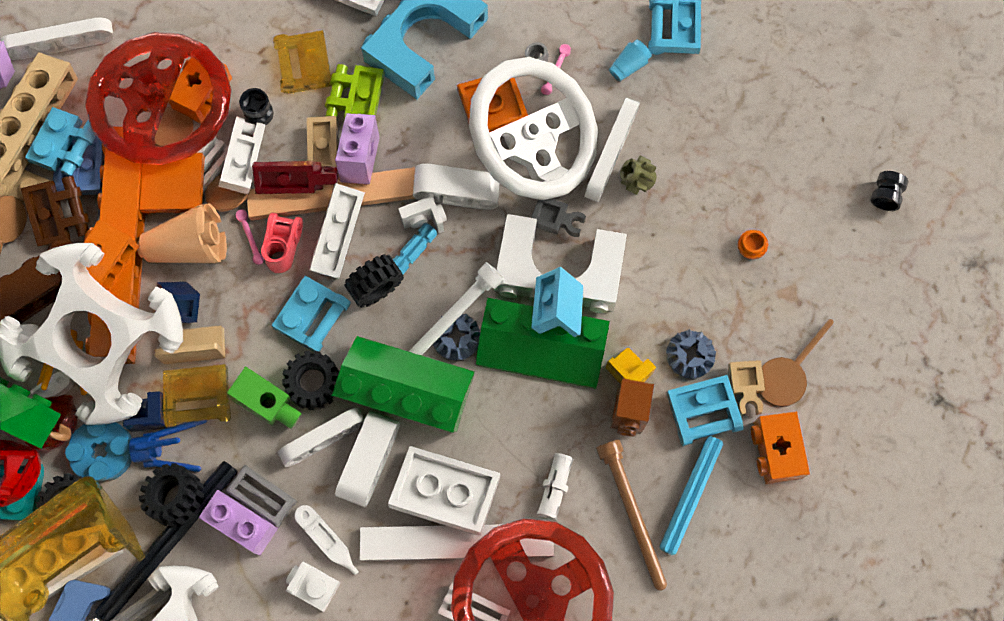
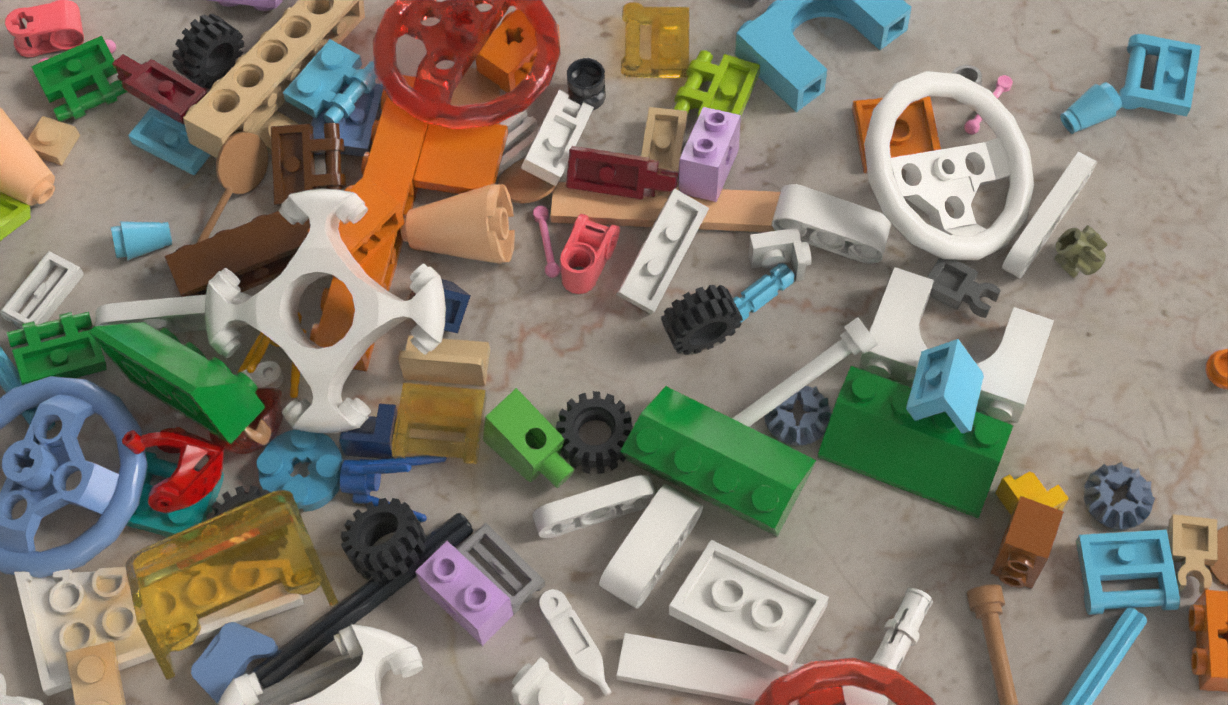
camera: 15 degrees right, 10 degrees down
(304, 308) = (600, 342): medium azure plate -> none

